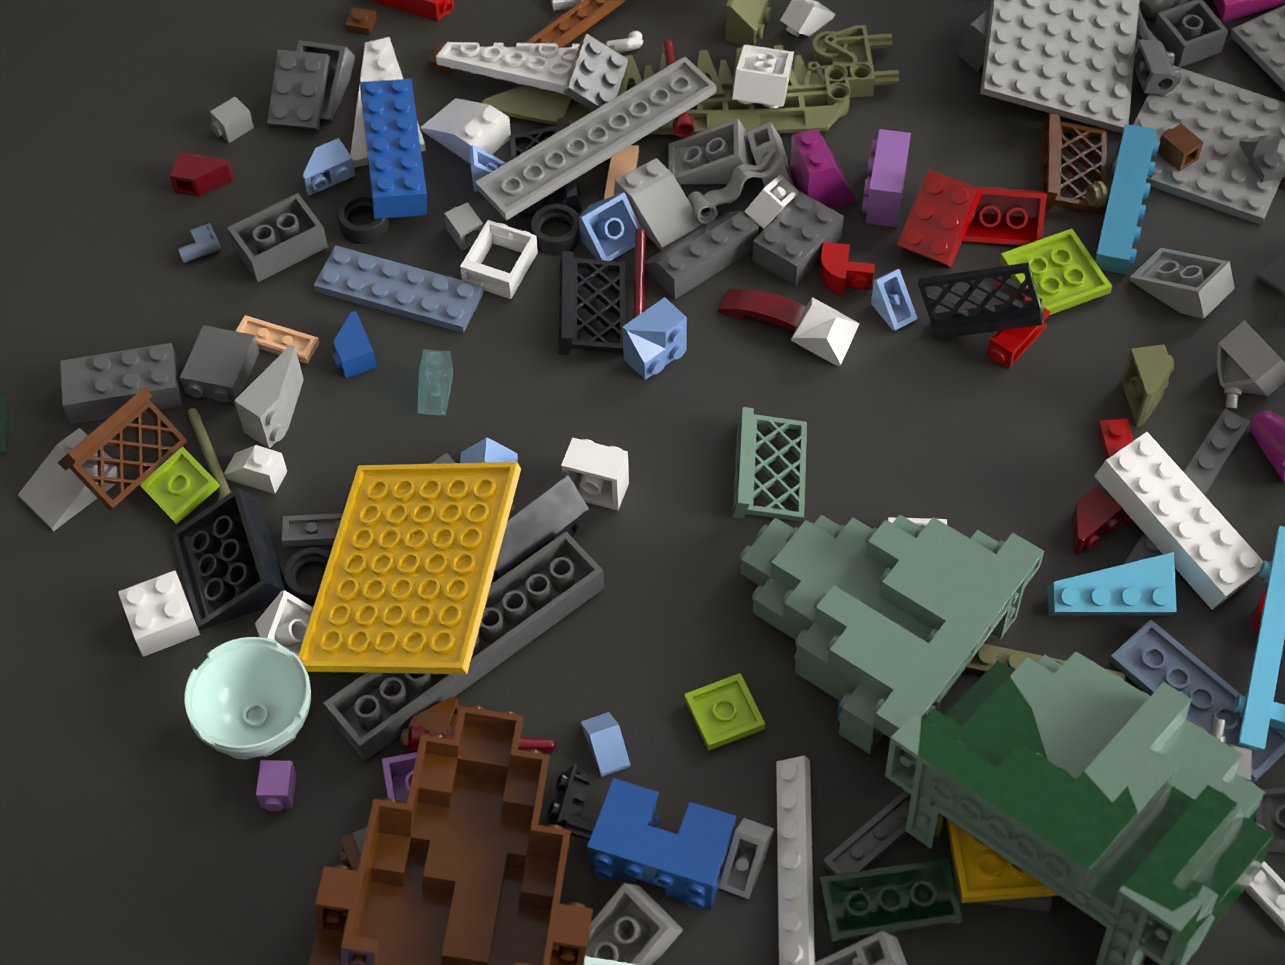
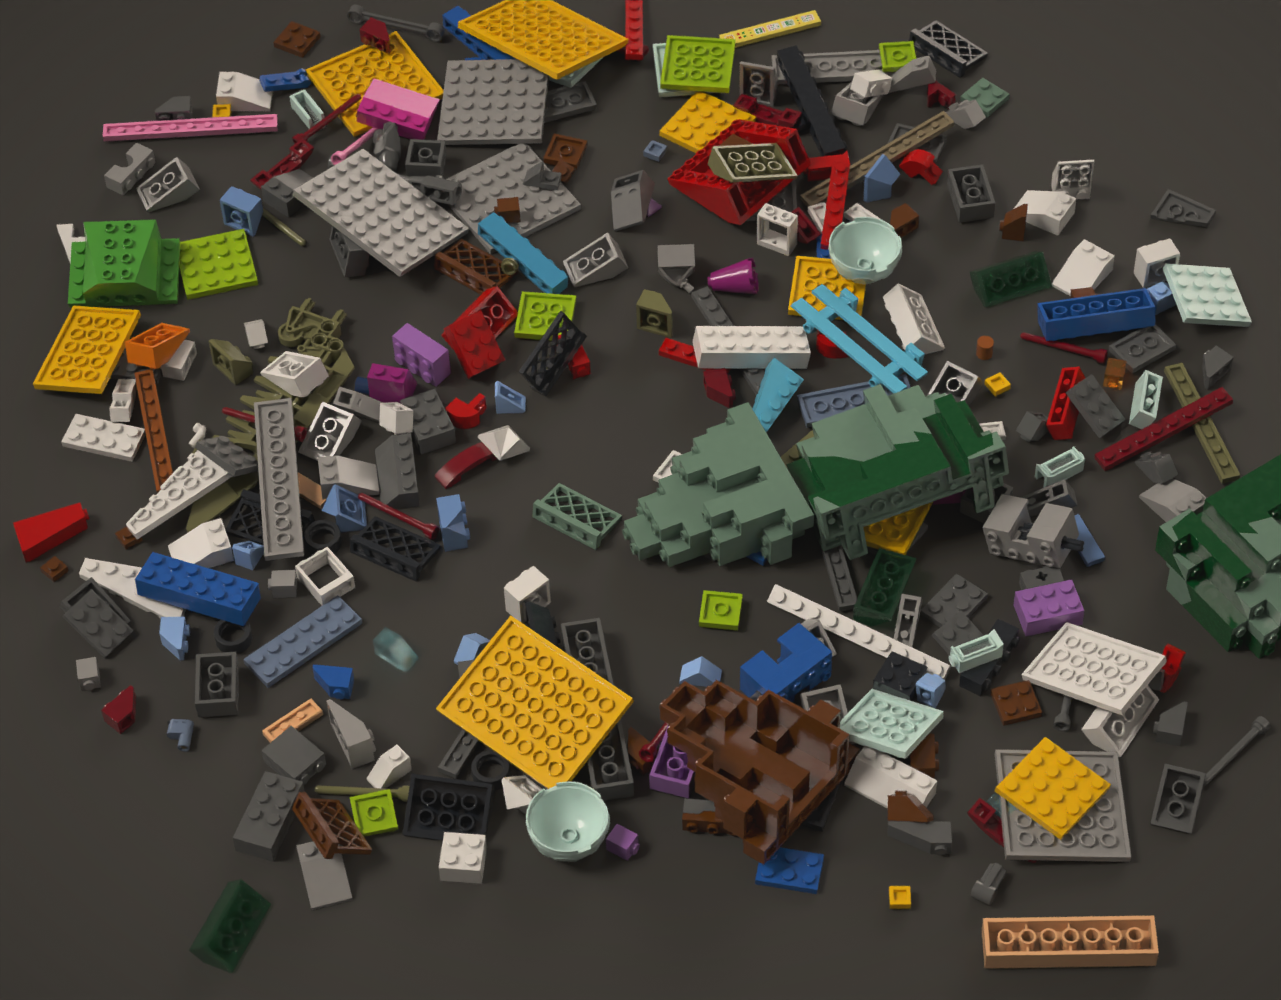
camera: 60 degrees left, 5 degrees down
(705, 205) = (367, 433): light grey flag -> none

